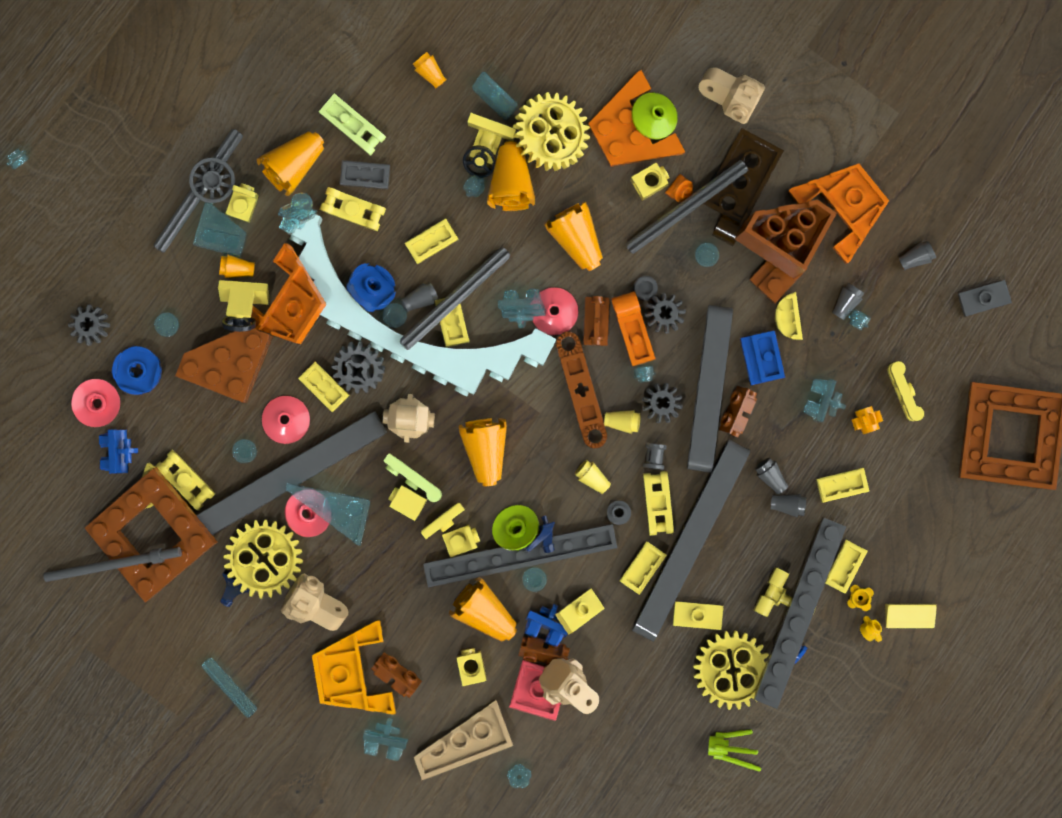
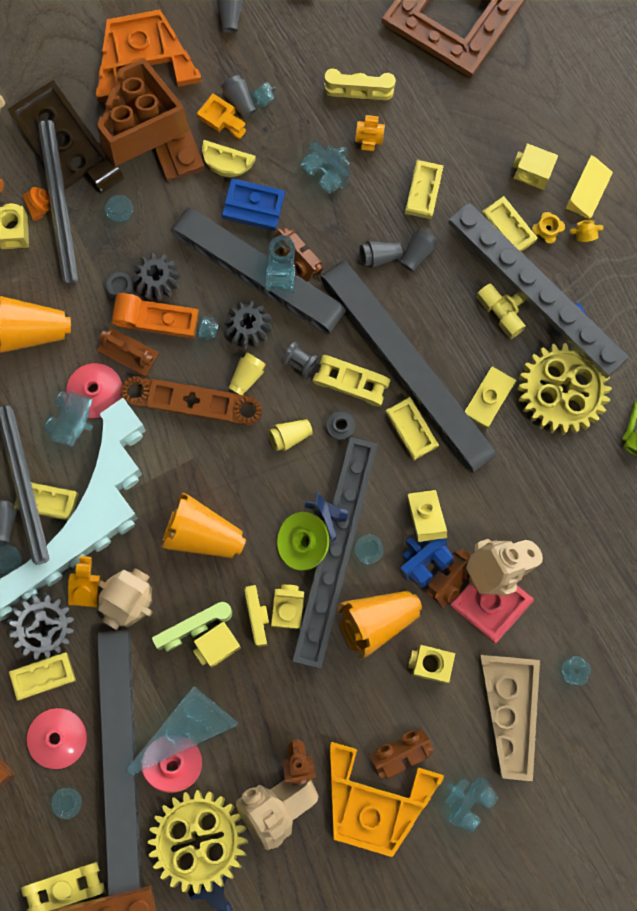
camera: 70 degrees left, 10 degrees down
(350, 604) = (298, 766): none -> dark orange hinge
(403, 383) = (83, 586): none -> light orange plate
(715, 408) = (281, 270): none -> clear light blue piece
(824, 292) = (220, 114): none -> light orange plate
(905, 563) = (534, 166): none -> light yellow brick

